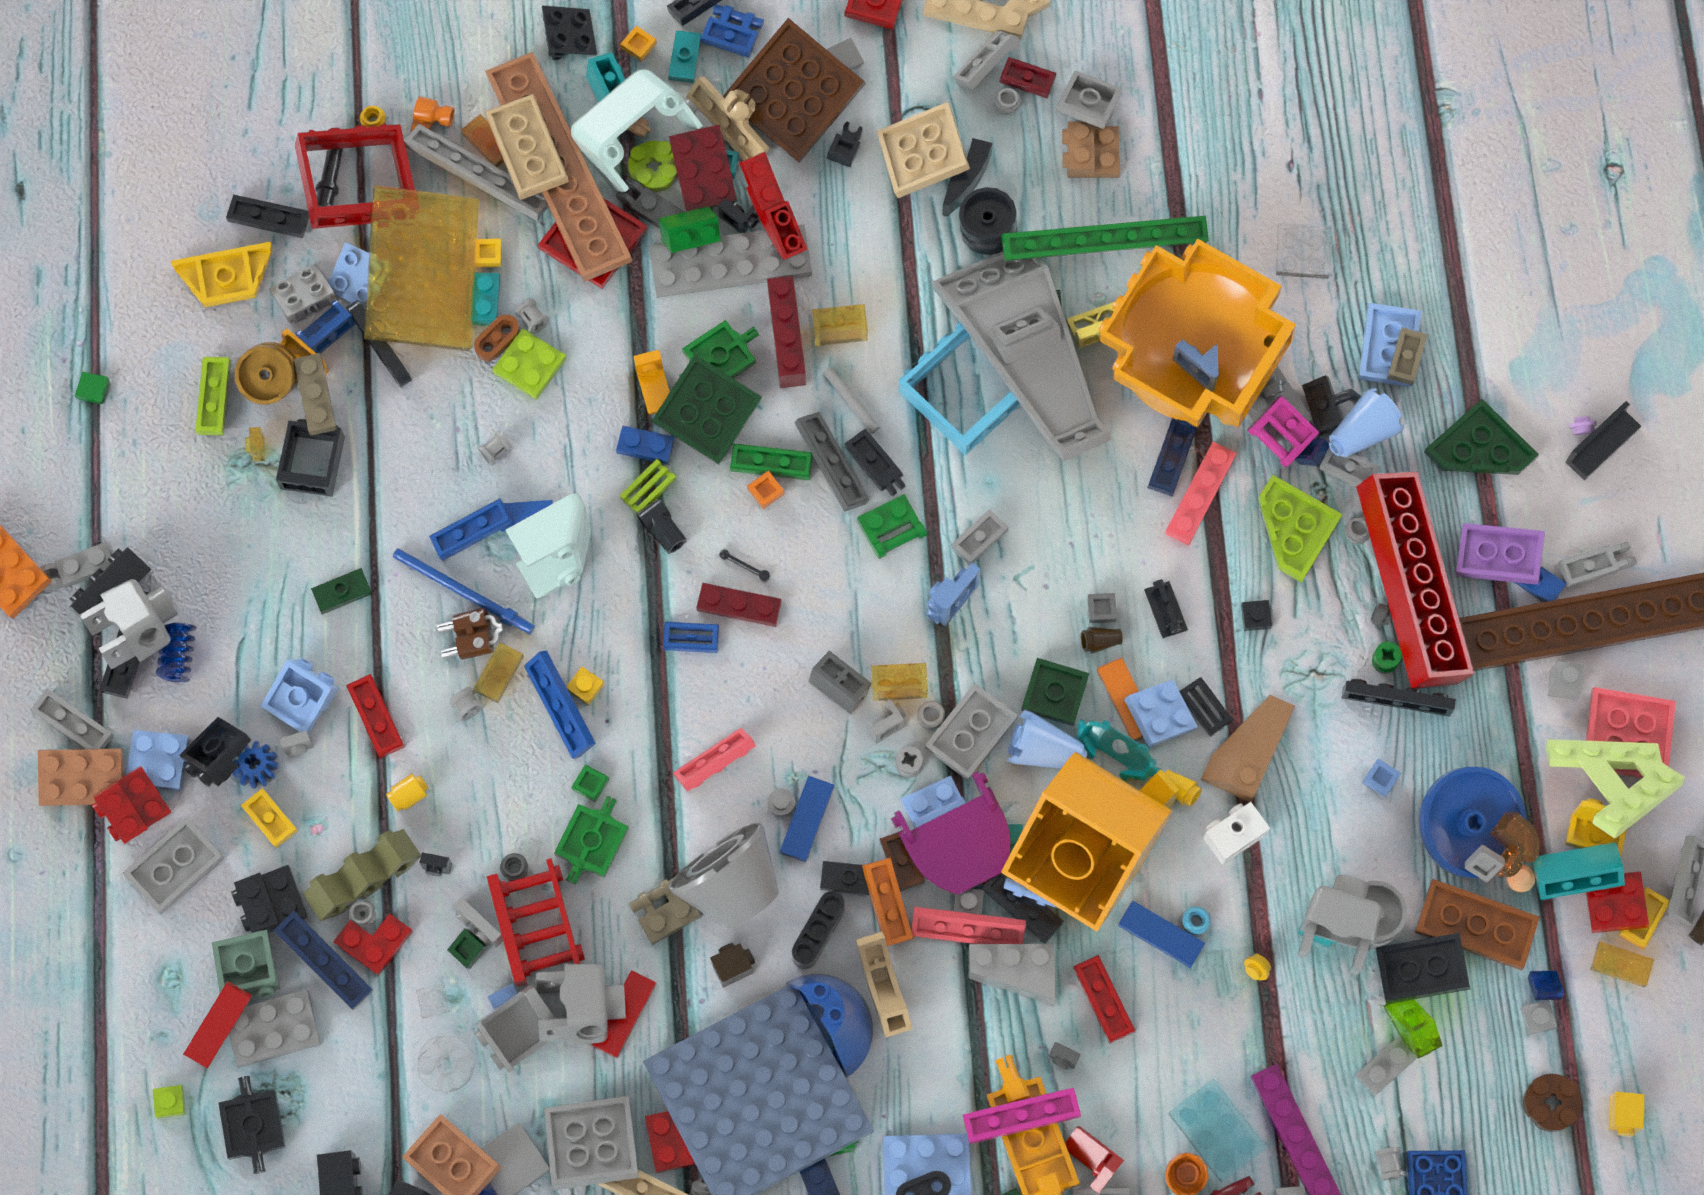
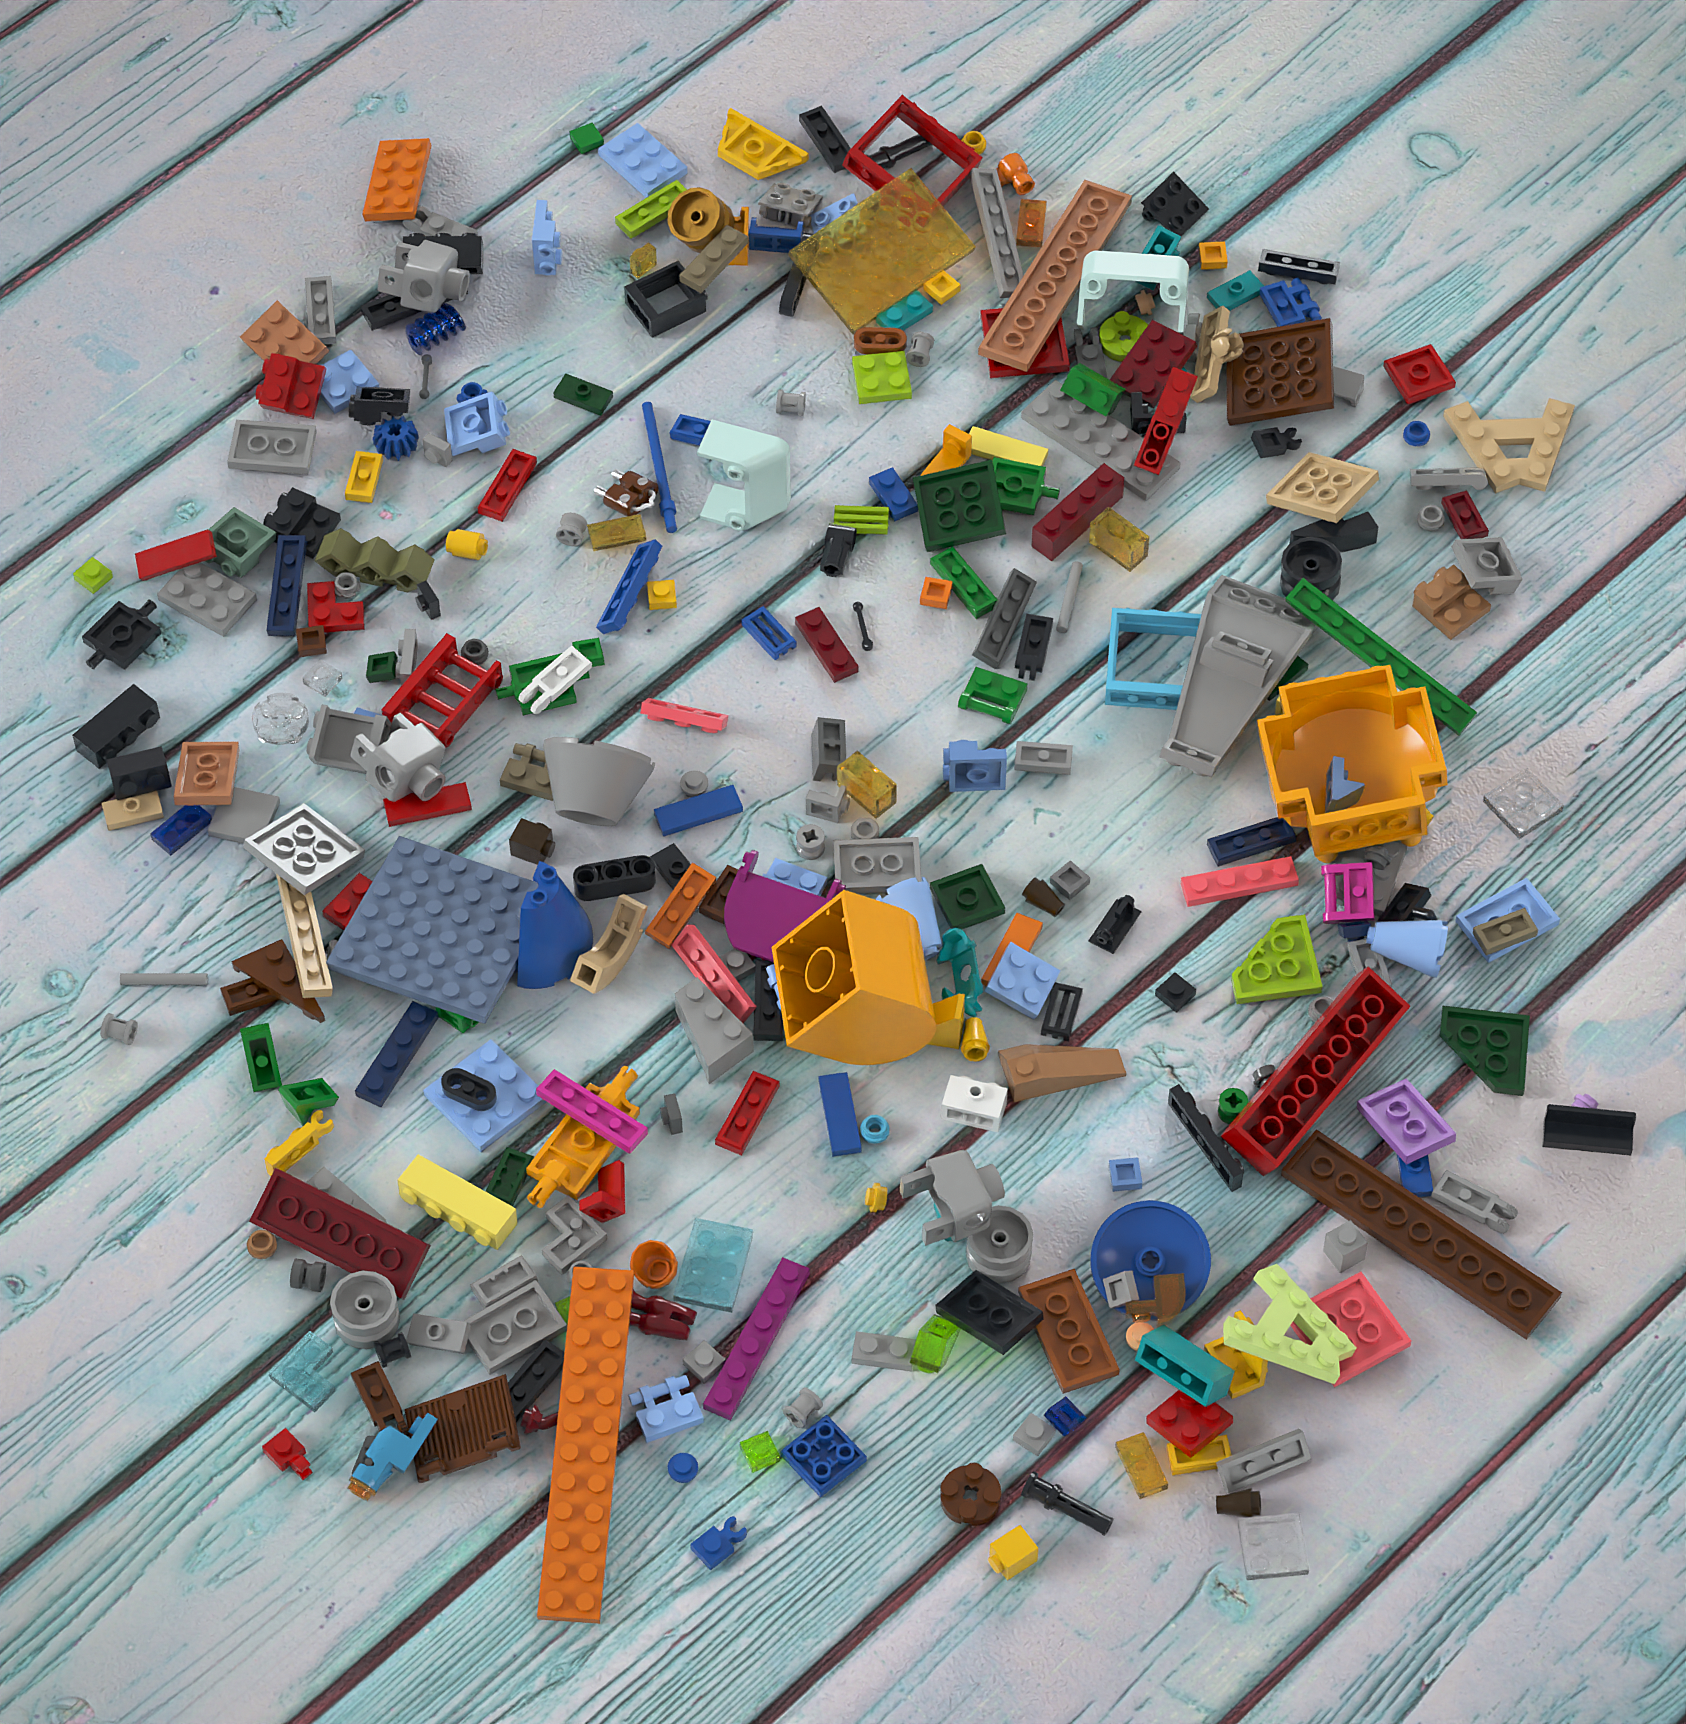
camera: 50 degrees right, 15 degrees down
(155, 365) = (642, 160): none -> light blue plate
(176, 502) = (545, 241): none -> light blue plate
(195, 680) = (426, 361): none -> dark grey hinge
(258, 671) = (469, 390): none -> blue plate
(392, 982) = (311, 641): none -> reddish brown plate
(526, 146) = (1047, 242): tan tile -> none
(604, 827) = (556, 679): none -> white hinge
(679, 332) = (990, 445): none -> light yellow tile
(925, 46) = (1416, 433): none -> blue plate
(1601, 1045) = (1054, 1497): none -> black pin

